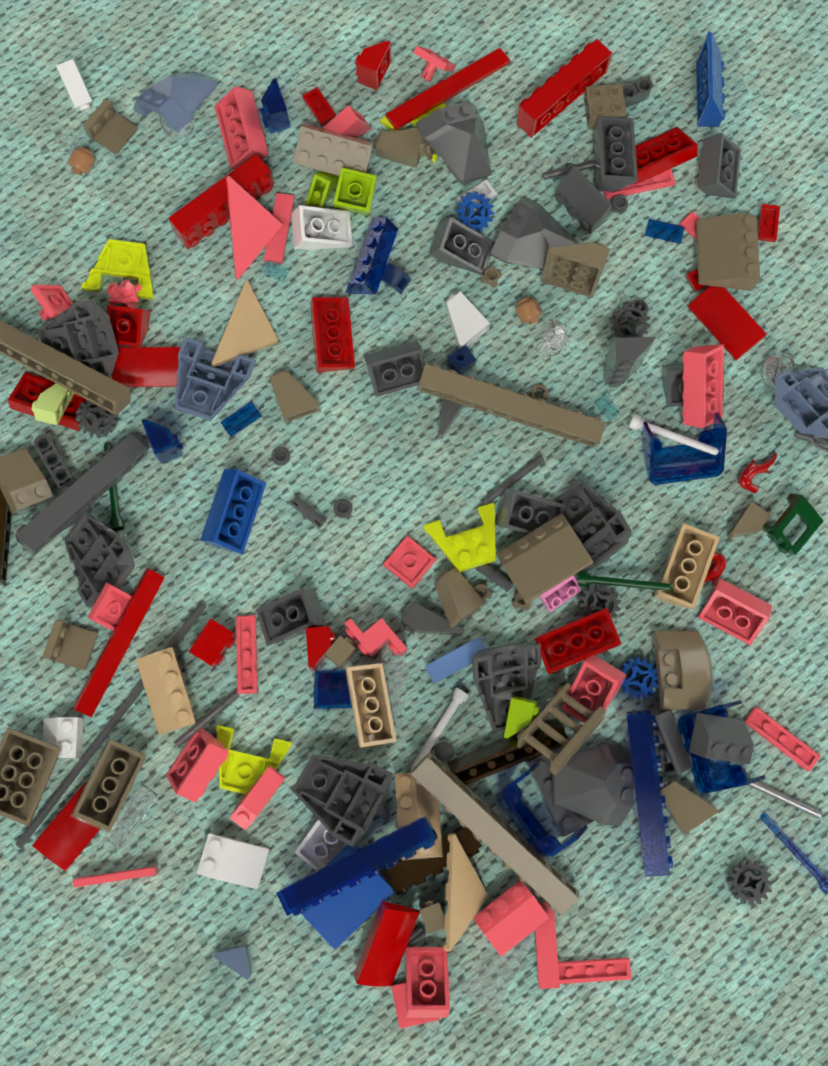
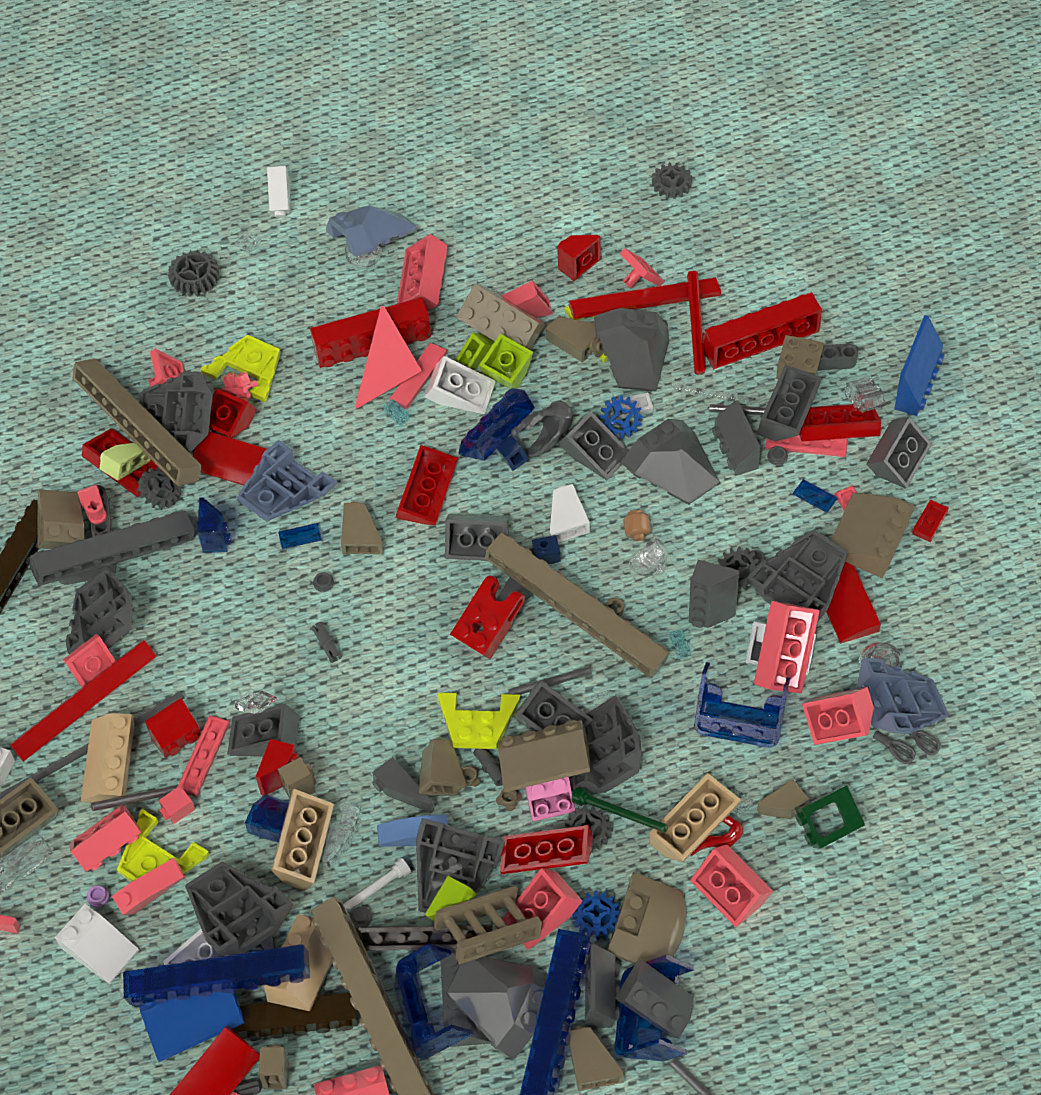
camera: 25 degrees right, 20 degrees down
(29, 202) = (193, 273): none -> dark grey gear
(43, 455) = (92, 503): none -> coral piece
(70, 645) = (33, 685): dark tan bracket -> none
(81, 160) = (253, 259): medium nougat head -> none
(109, 128) = (294, 237): dark tan bracket -> none
(116, 522) = (135, 587): dark green piece -> none
(213, 816) = (97, 896): none -> lavender plate
(233, 511) = (252, 616): blue slope -> none
(236, 959) = (57, 1039): sand blue slope -> none
(244, 710) = (176, 805): none -> coral brick
(246, 330) = (342, 456): tan tile -> none
(272, 592) = (254, 702): none -> clear slope
(273, 109) = (460, 266): clear blue slope -> none
(319, 106) = (507, 276): red plate -> none
(343, 508) = (363, 650): dark grey plate -> none
(375, 638) = (337, 778): coral bracket -> none
(409, 562) = (408, 724): coral tile -> none
(417, 244) = (555, 421): none -> dark grey hair
(443, 440) = (491, 615): none -> red brick
(463, 892) = (314, 1050): tan tile -> none
(491, 272) = (613, 478): dark tan plate -> none
(501, 97) = (696, 322): none -> red axle
(575, 267) = (697, 493): dark tan slope -> none
(637, 423) = (736, 689): white piece -> none
(672, 121) = (864, 394): none -> clear brick
(689, 313) = (801, 573): none -> dark grey wedge
(752, 469) = (811, 752): red piece -> none
(770, 431) = (839, 715): none -> coral slope
(782, 739) = (730, 1034): coral tile -> none

